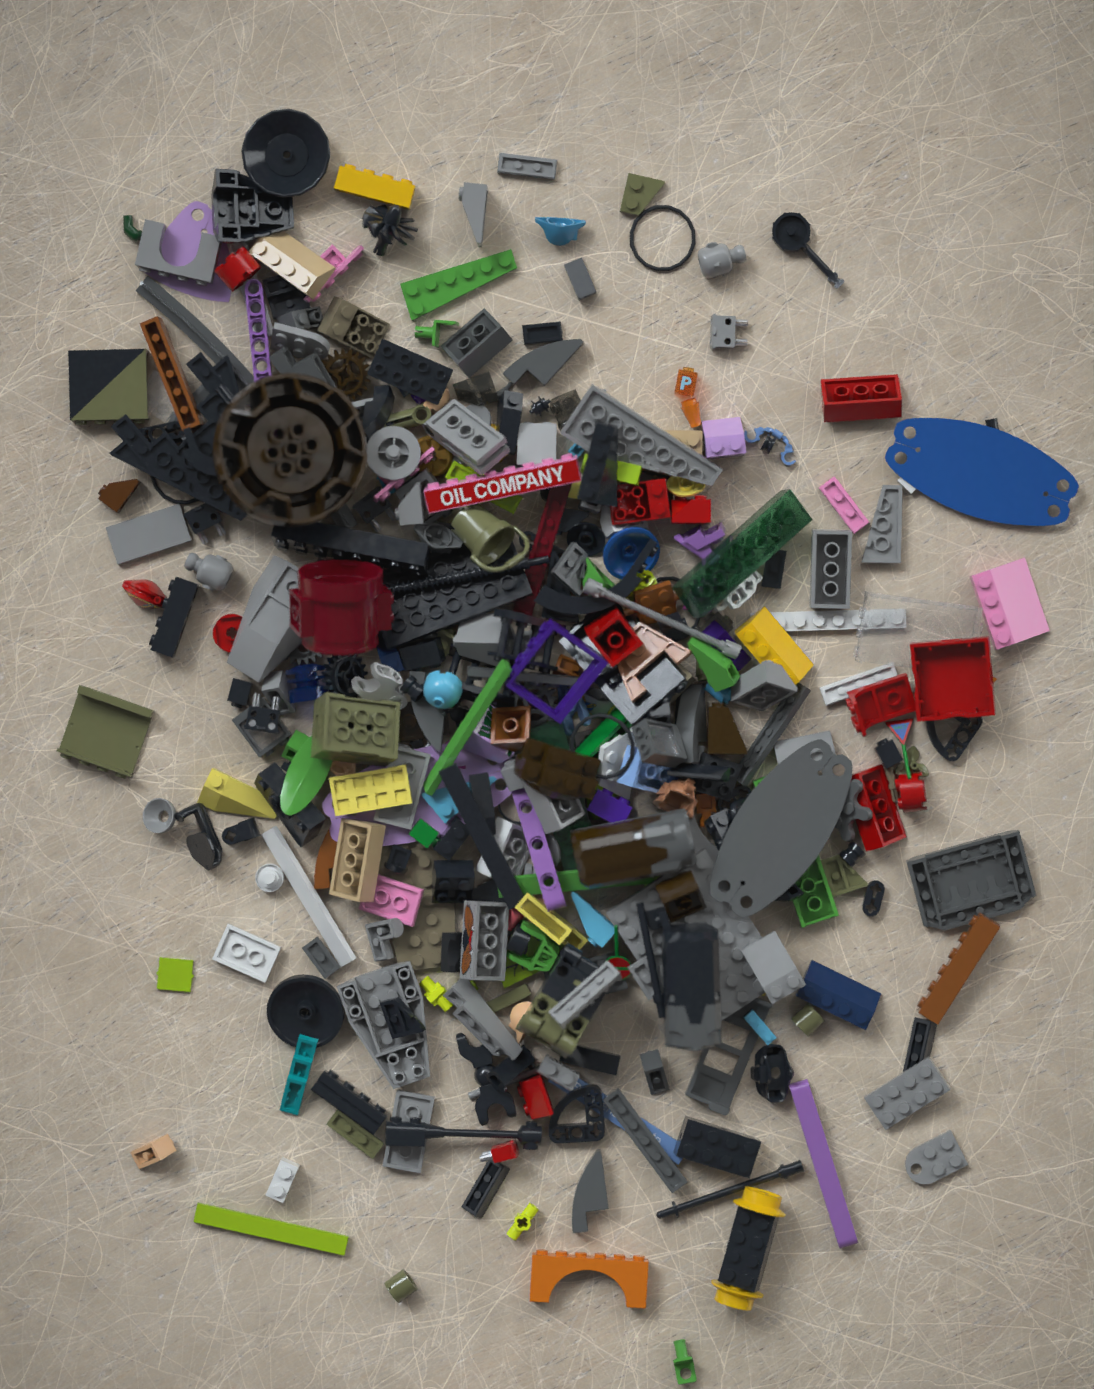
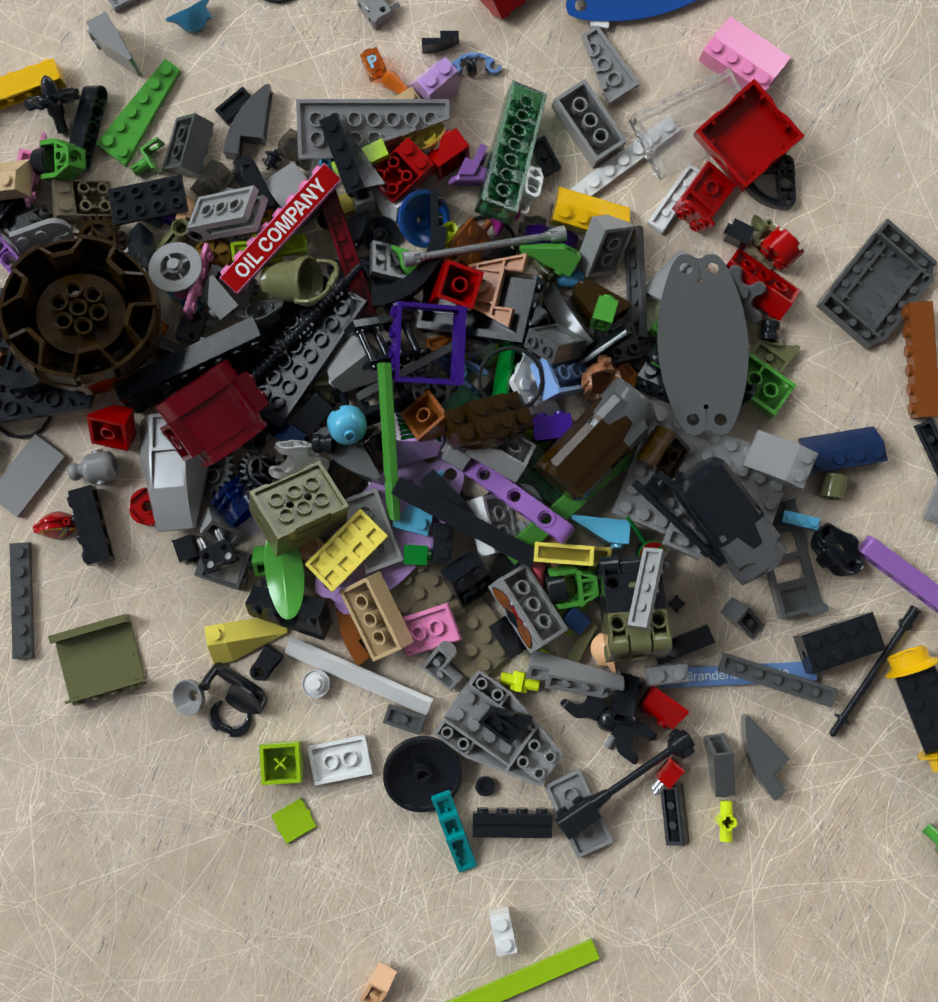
camera: 30 degrees left, 5 degrees down
(74, 637) = (21, 600): none -> dark grey plate
(166, 850) = (217, 724): none -> black piece
(198, 921) = (281, 762): none -> lime brick
(202, 515) = (60, 428): black piece -> none
(248, 548) = (112, 427): none -> red slope
(348, 1056) = (484, 786): none -> black tile
(354, 277) = (57, 160): none -> bright green piece
(355, 1134) = (536, 847): olive plate -> none
(398, 859) = (410, 592): black tile -> none
(400, 267) = (89, 120): none -> black beam
(401, 1286) = (665, 950): olive piece -> none
(517, 978) = (576, 620): none -> dark blue slope
(550, 1174) = (720, 765): none -> dark grey slope
(552, 1267) = (778, 842): orange arch -> none
(580, 279) = (236, 45): slope -> none
(586, 1127) = (721, 703): black beam -> none
(610, 1022) = (676, 603): none -> black piece
(715, 748) = (604, 313): none -> bright green brick
(763, 404) = (447, 40): none -> black slope
(844, 505) = (561, 72): bright pink tile -> none
(877, 899) = (814, 353): black beam -> none
(900, 730) = (735, 210): piece -> none

